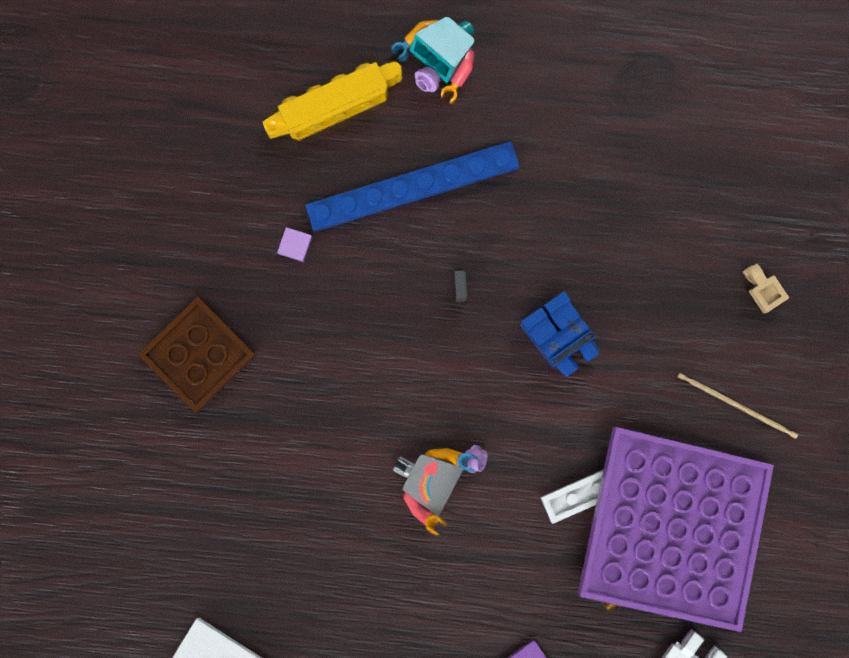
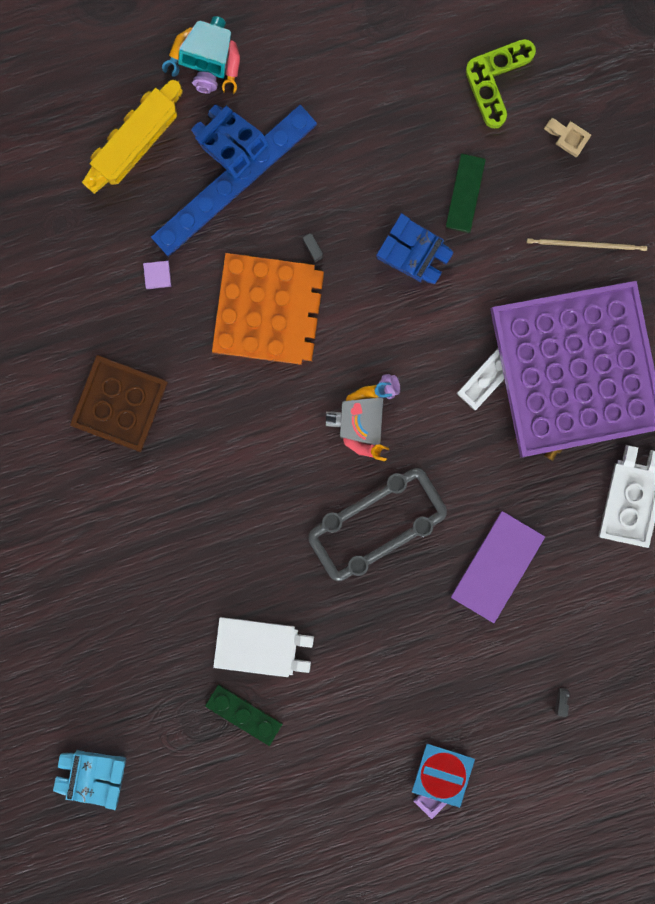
camera: 25 degrees left, 5 degrees up
(362, 628) = (395, 484): none -> dark grey bar
(387, 327) = (267, 309): none -> orange hinge
(426, 141) = (229, 139): none -> blue hips
(636, 300) = (465, 193): none -> dark green tile
(714, 191) = (490, 71): none -> lime beam

